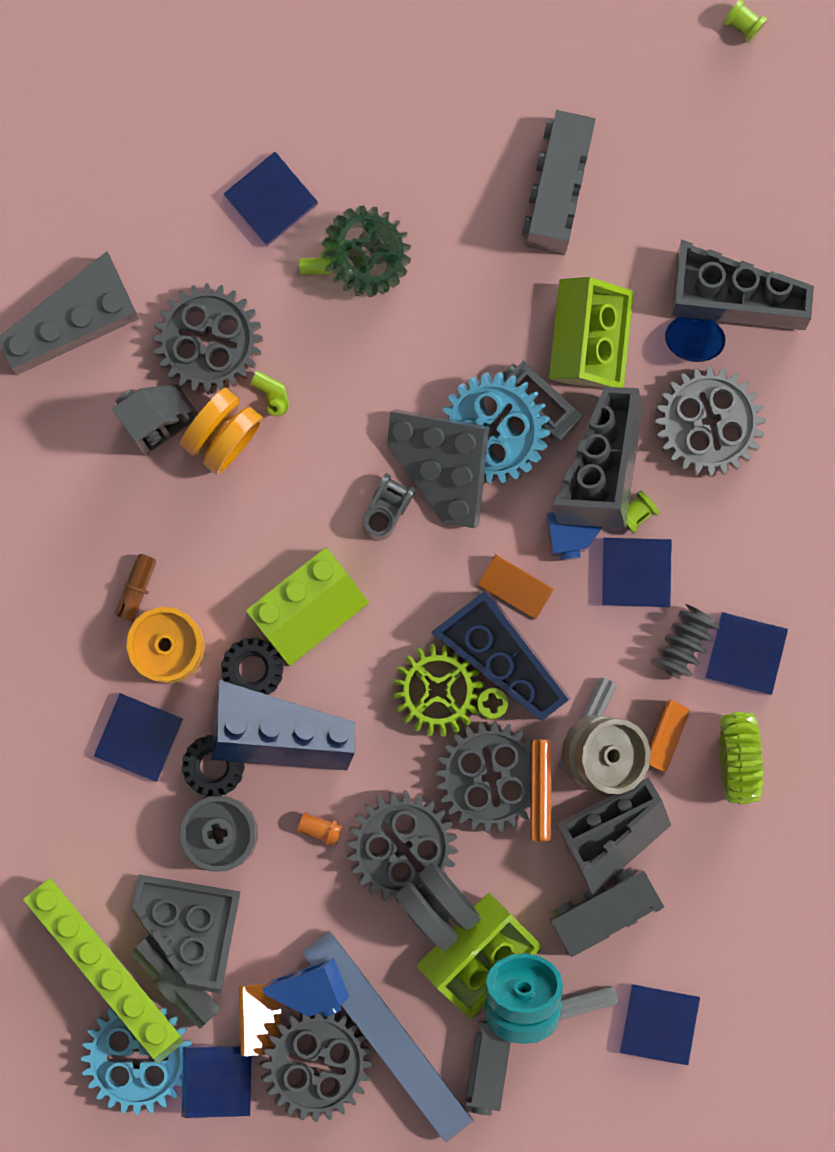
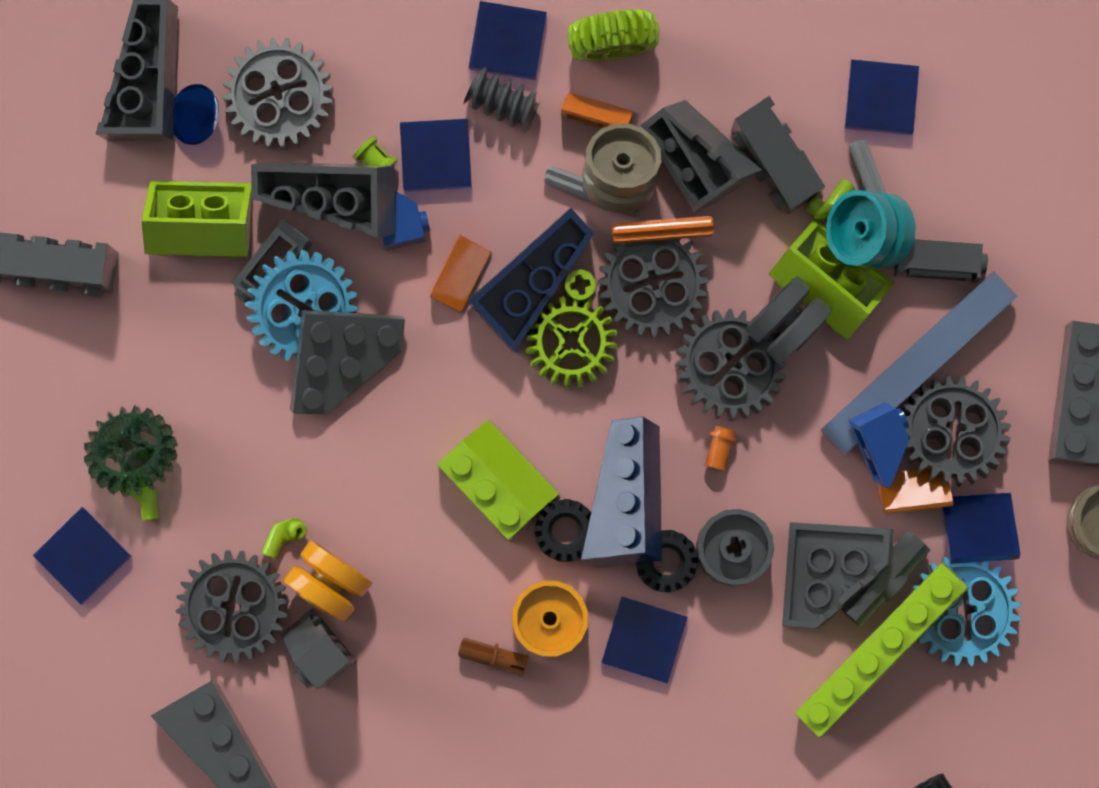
camera: 90 degrees left, 0 degrees up
(388, 506) = (389, 408): dark grey piece -> none
(550, 952) = (821, 209): none -> lime arm

